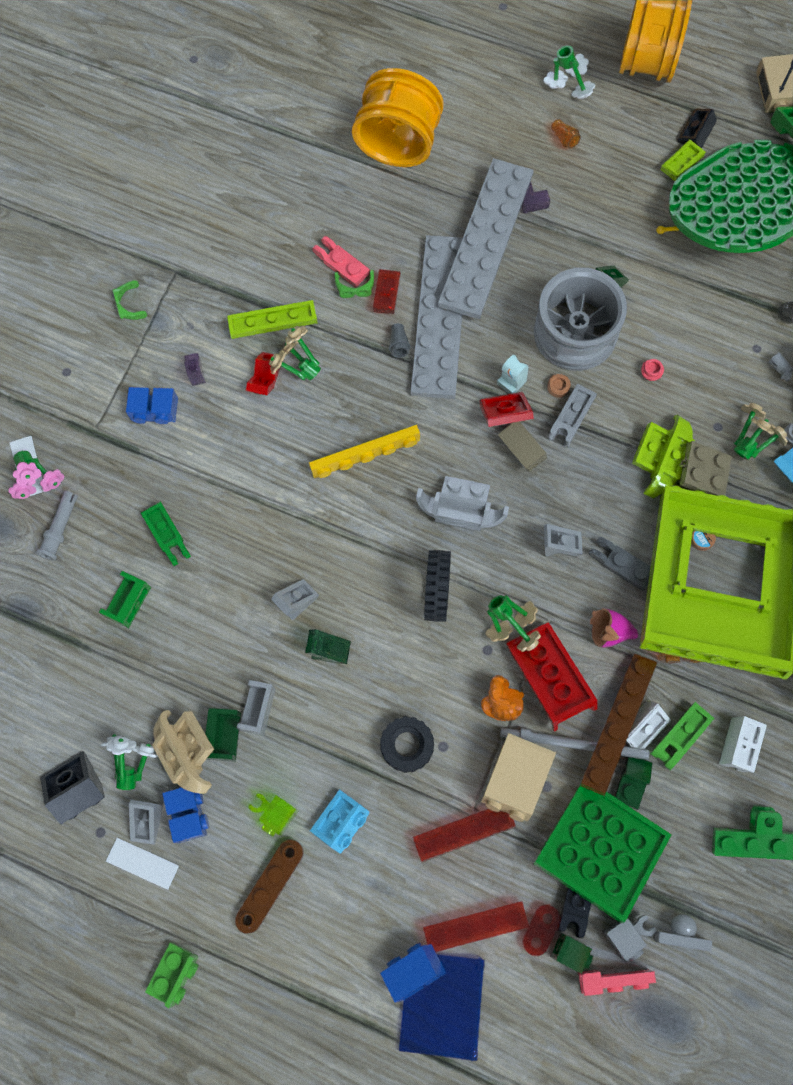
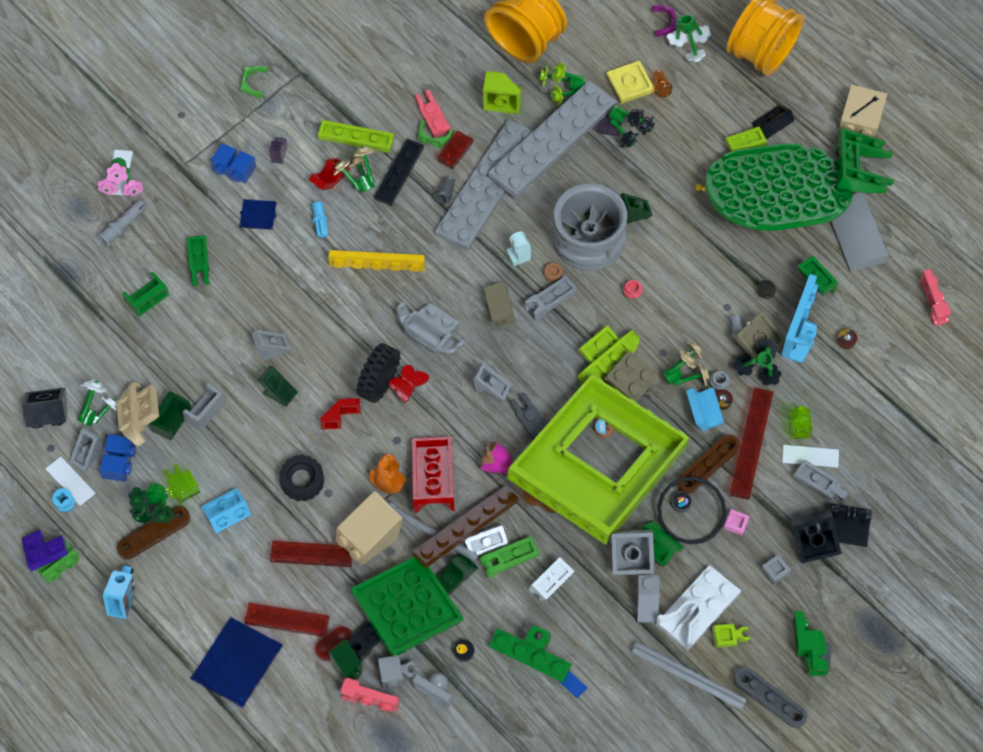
camera: 20 degrees right, 10 degrees down
(148, 977) = (41, 553): none -> dark purple plate
(152, 893) = (67, 503): none -> medium azure wheel
(206, 451) = (258, 214): none -> clear blue piece
(242, 867) = (141, 500): none -> dark green plant
(268, 995) = (119, 593): none -> medium azure torso
(278, 430) = (320, 219): none -> medium azure axle
(338, 340) = (399, 172): none -> black tile
(408, 209) = (501, 94): none -> lime slope
(408, 656) = (332, 417): none -> red slope
(409, 974) = (219, 625): blue piece -> none
(468, 579) = (407, 382): none -> red animal
(474, 166) = (574, 82): none -> plant
(501, 608) = (417, 408): plant -> none
(506, 409) = (499, 271): red plate -> none
(530, 144) = (630, 82): none -> light yellow tile
(535, 55) = (670, 11): none -> magenta cap
(567, 180) = (635, 118): none -> black plant
(689, 871) = (463, 650): none -> black tile

